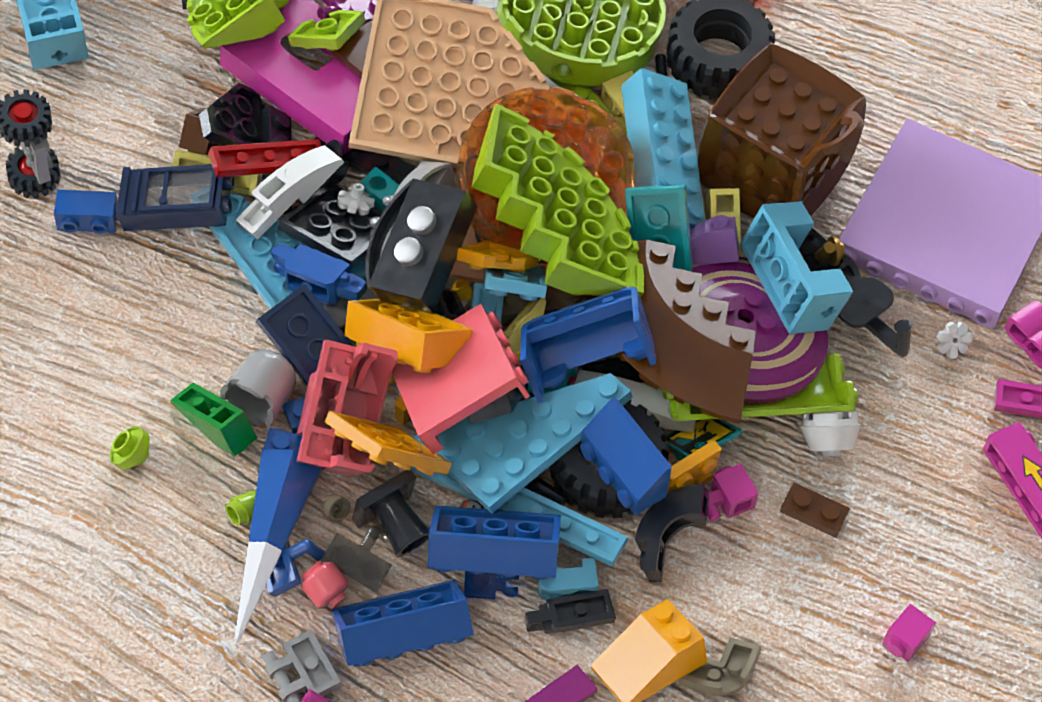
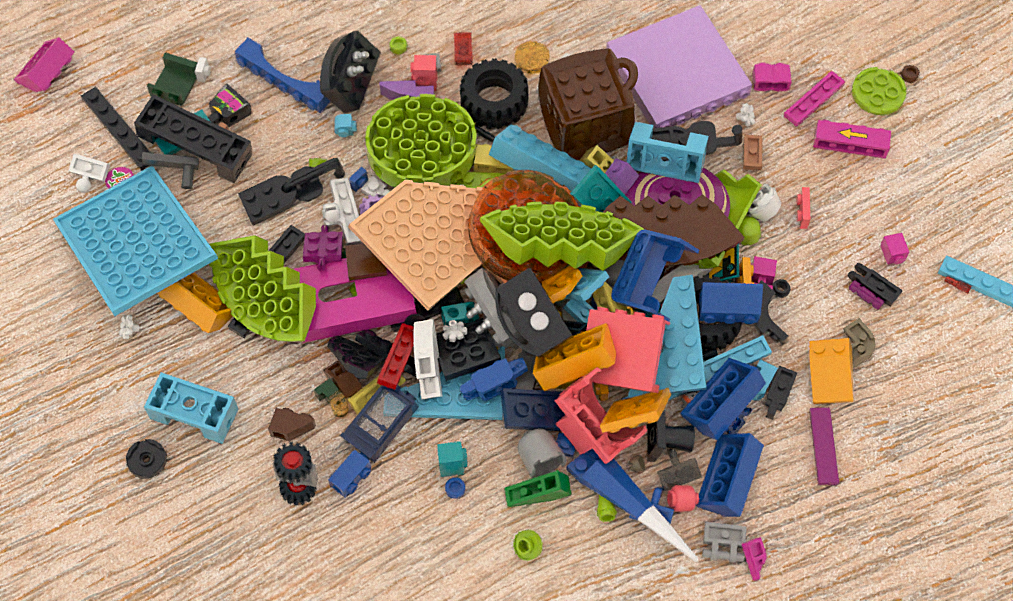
camera: 50 degrees left, 5 degrees up
(103, 116) = (290, 425): none -> reddish brown slope
(153, 331) = (455, 488): none -> blue tile
(168, 141) = (333, 396): none -> leg
(178, 296) = (451, 459): none -> teal brick
(329, 32) = (339, 272): lime plate -> none
(728, 521) = (781, 283): none -> black plate
(780, 440) = (751, 230): none -> lime hair
(808, 639) = (866, 295): none -> magenta axle
(814, 510) = (796, 242): reddish brown plate -> none
(823, 52) = (531, 57): none -> clear yellow tile
(831, 250) = (663, 130): pearl gold plate -> none
(833, 643) = (876, 283): none -> black hinge
(880, 481) = (803, 213): none -> coral plate
(903, 378) = (752, 152): none -> nougat plate

